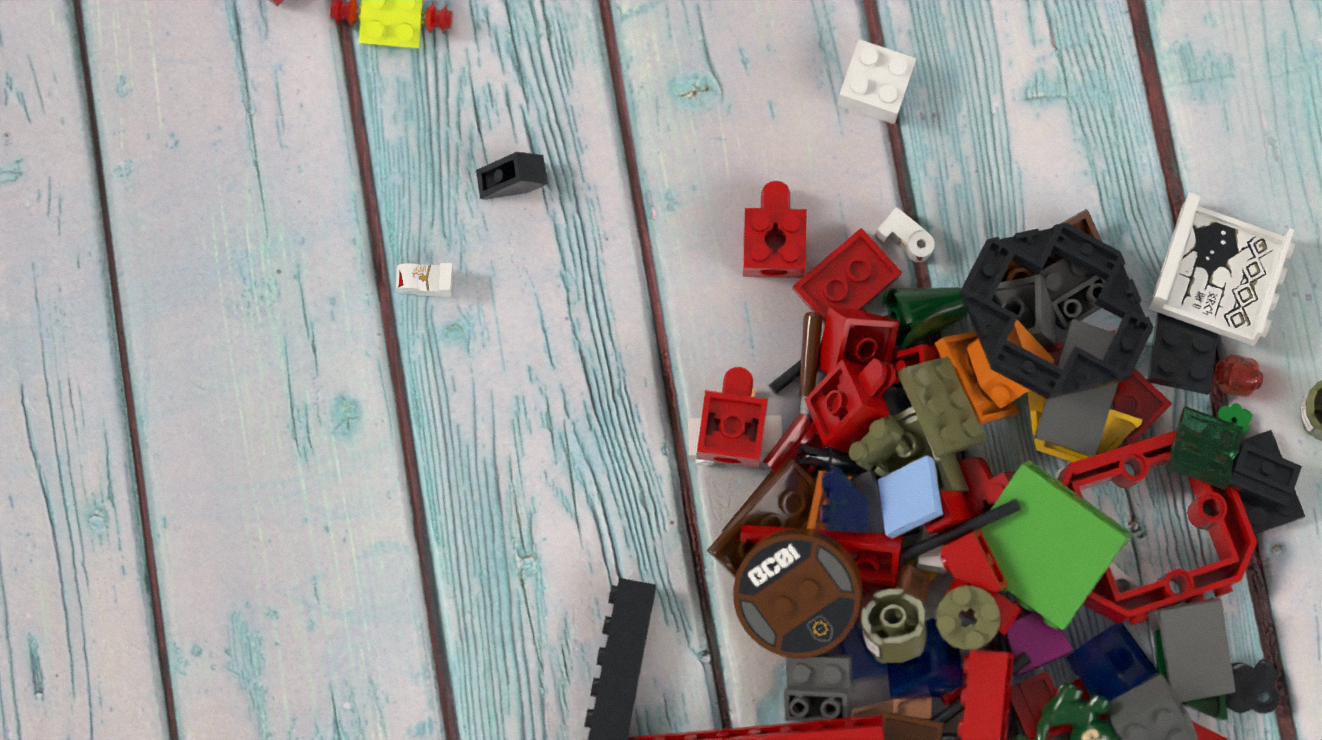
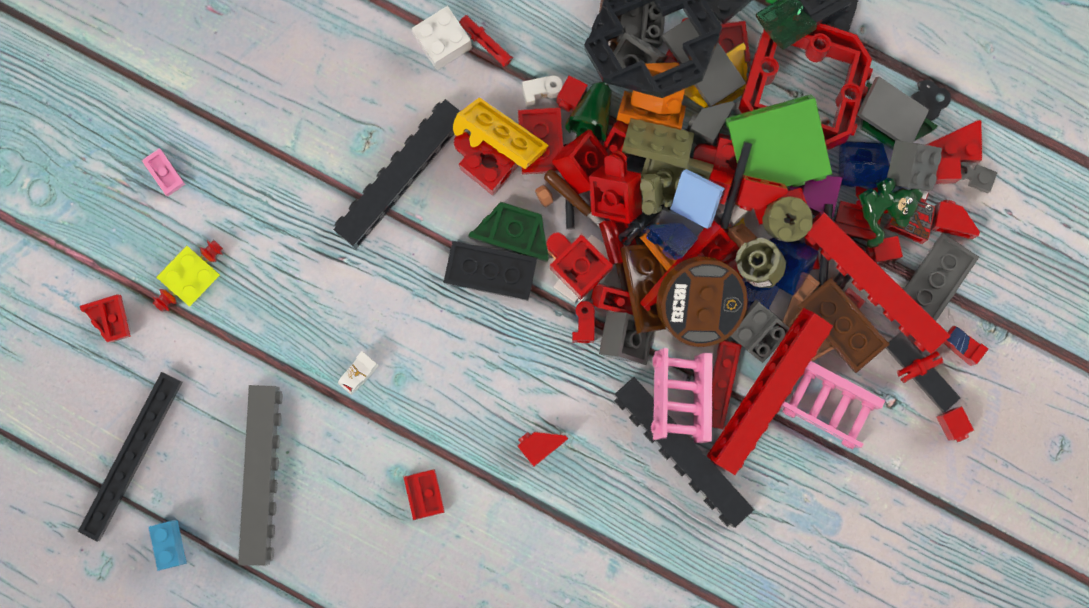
camera: 50 degrees left, 5 degrees up
(80, 220) = (167, 545): none -> dark azure brick
(147, 107) = (130, 457): none -> black plate
(231, 259) = (259, 475): none -> dark grey brick
(345, 454) = (424, 494): none -> red plate
(496, 540) = (539, 445): none -> red slope
(512, 175) = (336, 279): black slope -> none
(653, 337) = (490, 270): none -> black plate
(675, 488) = (585, 314): none -> red leg
(685, 153) = (398, 175): none -> black brick
(685, 545) = (622, 341): none -> dark grey slope
(702, 669) = (702, 392): none -> bright pink fence
(719, 327) = (514, 231): none -> dark green wing
(725, 493) = (611, 299): none -> red slope
(726, 695) = (723, 380): none -> red tile
(786, 331) = (544, 195): none -> nougat tile
(816, 225) = (499, 131): none -> yellow hinge
(914, 120) = (478, 34): none -> red pin
(927, 271) = (571, 93): none -> red brick
(1011, 446) = (709, 123): none -> dark grey slope

